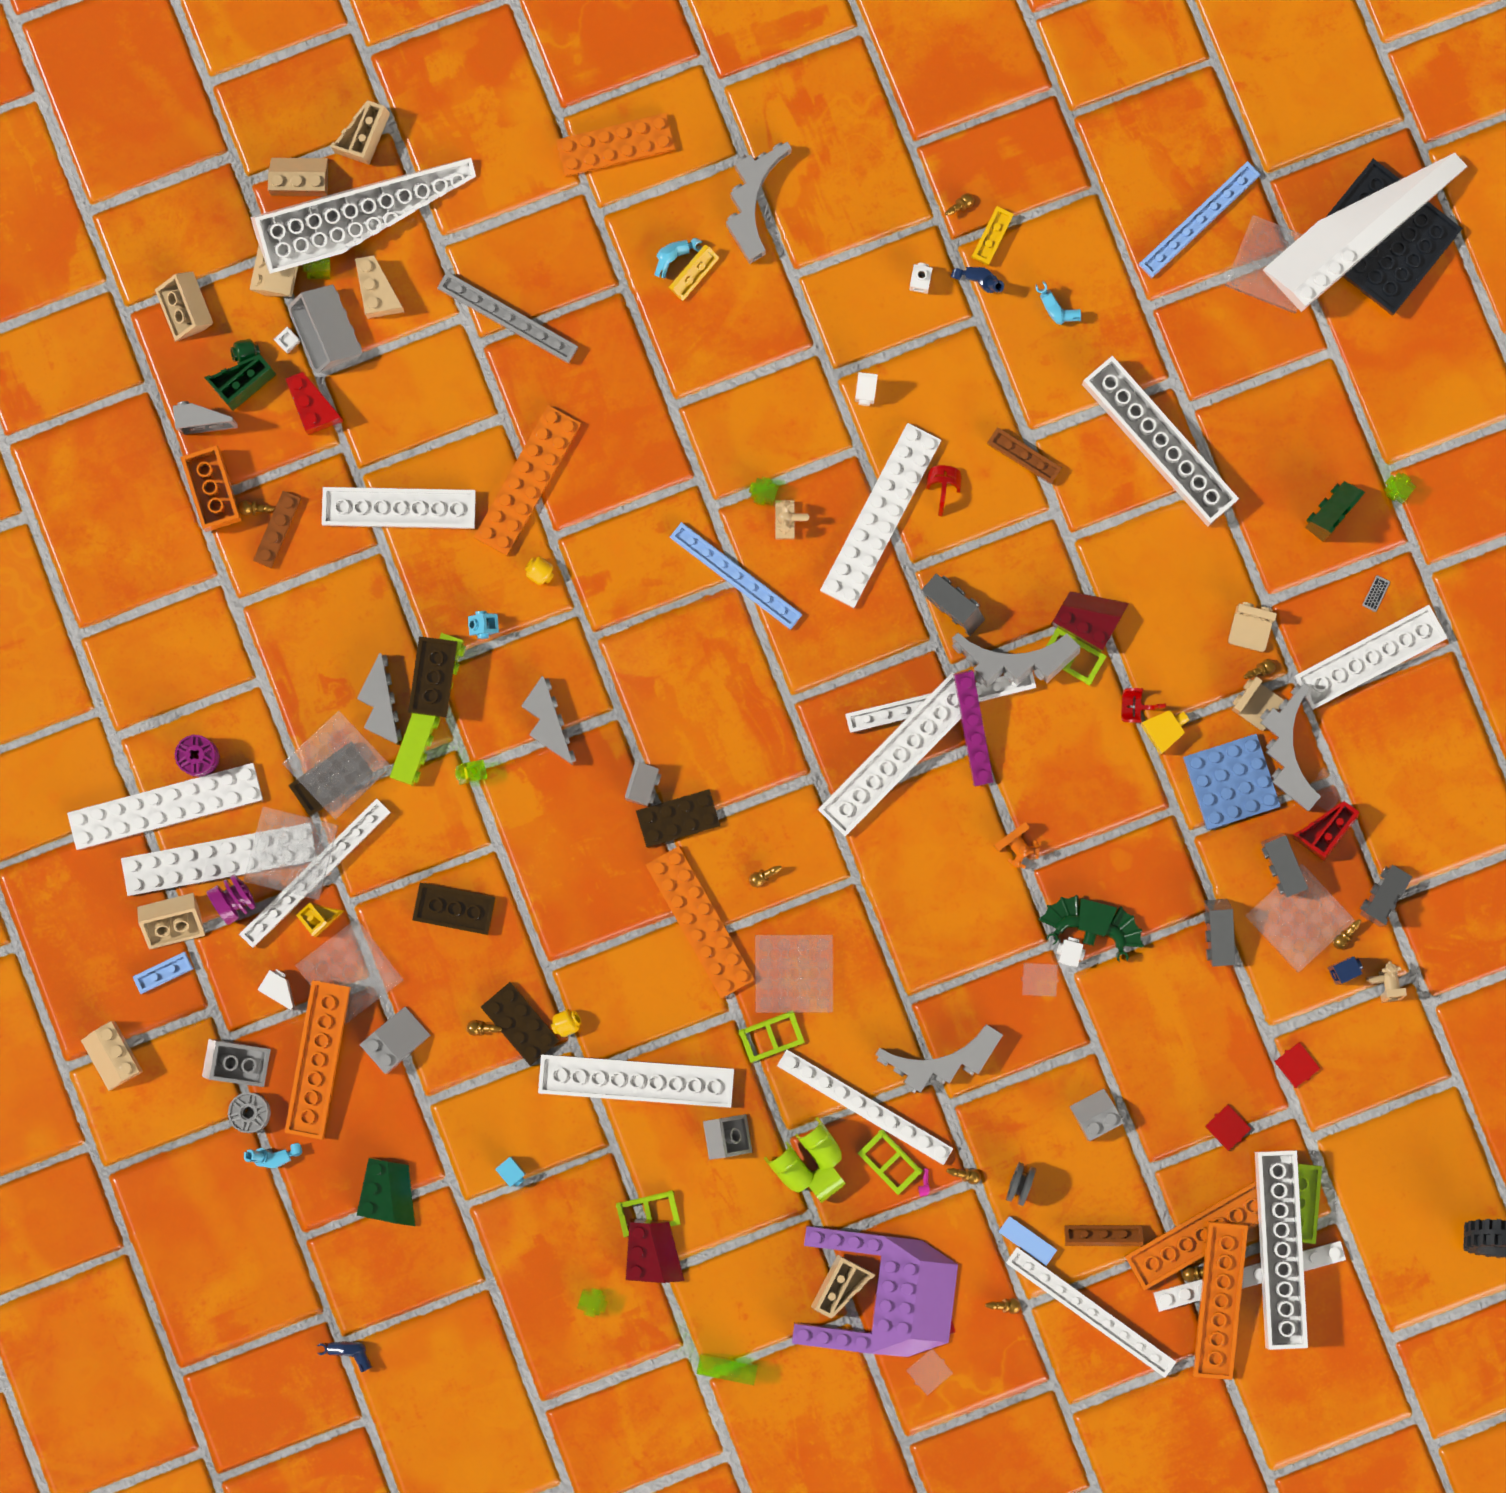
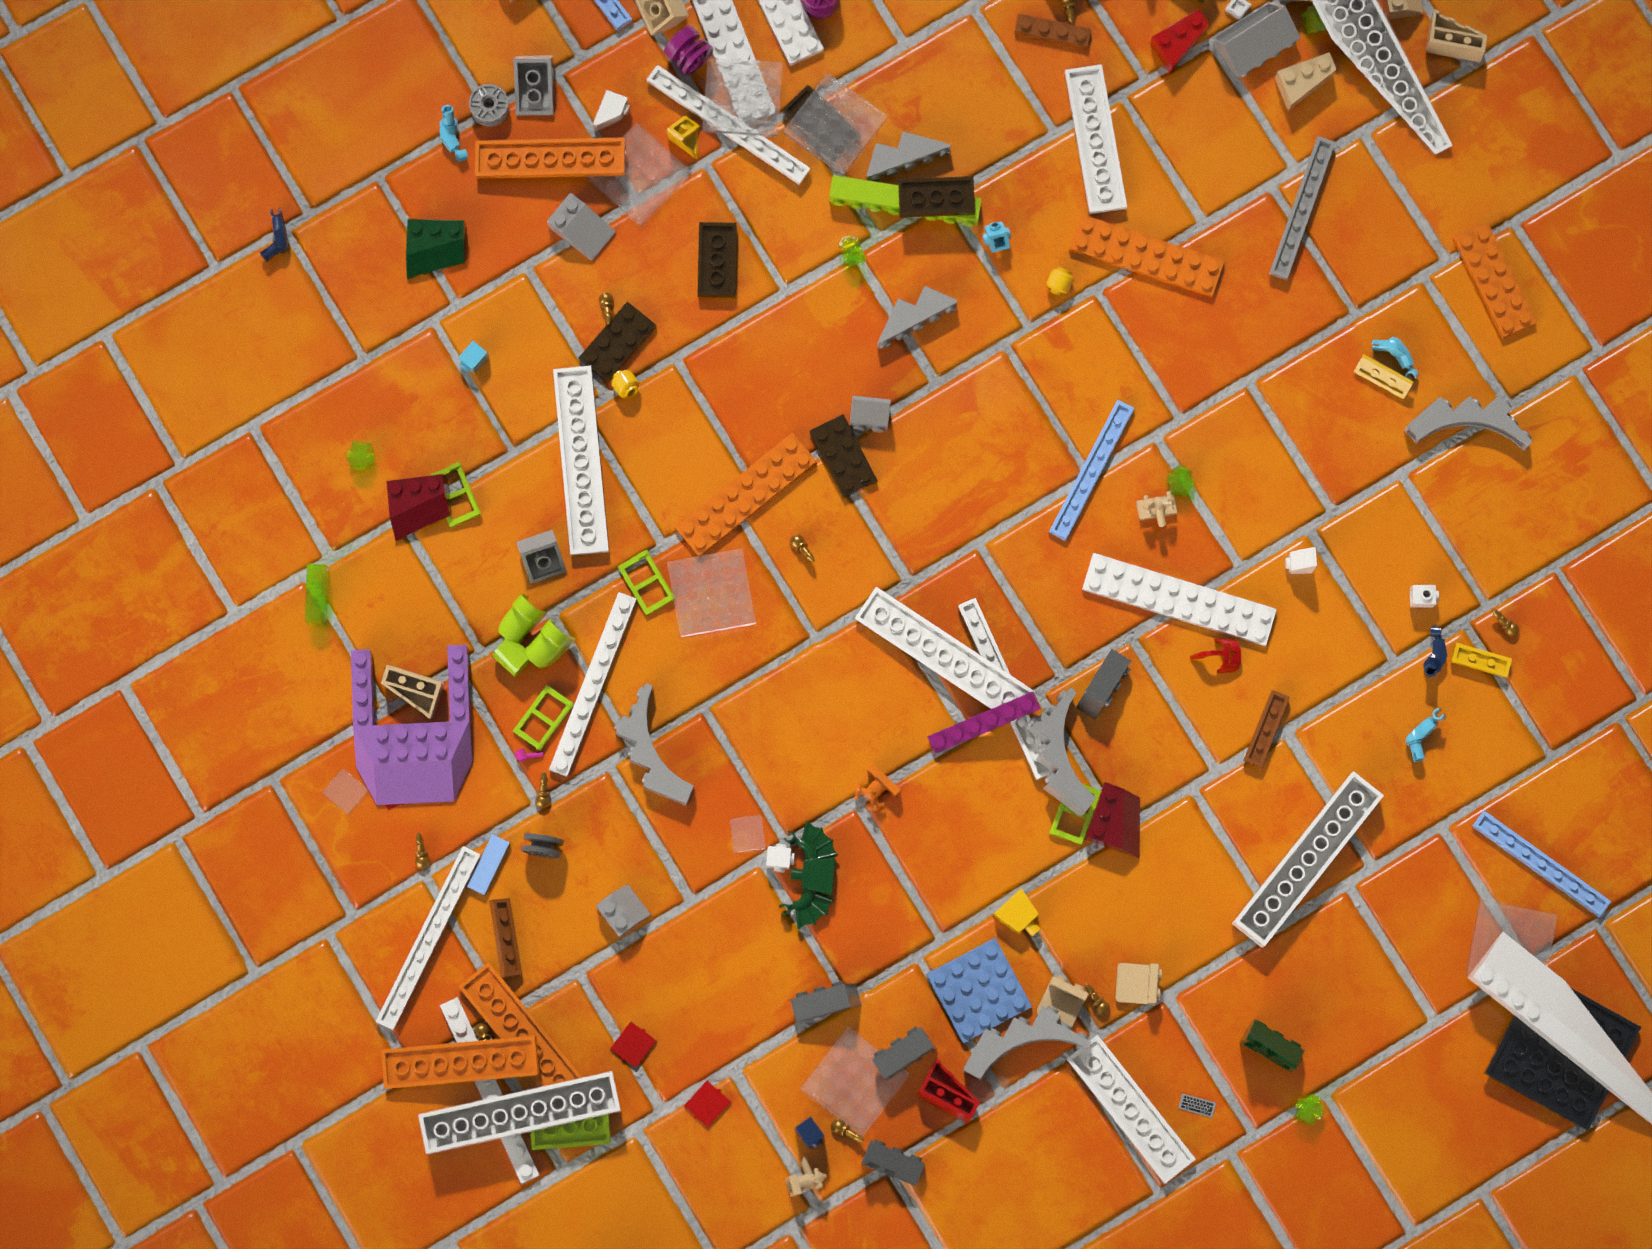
camera: 75 degrees right, 5 degrees down
(1127, 700) = (1042, 873): red helmet -> none

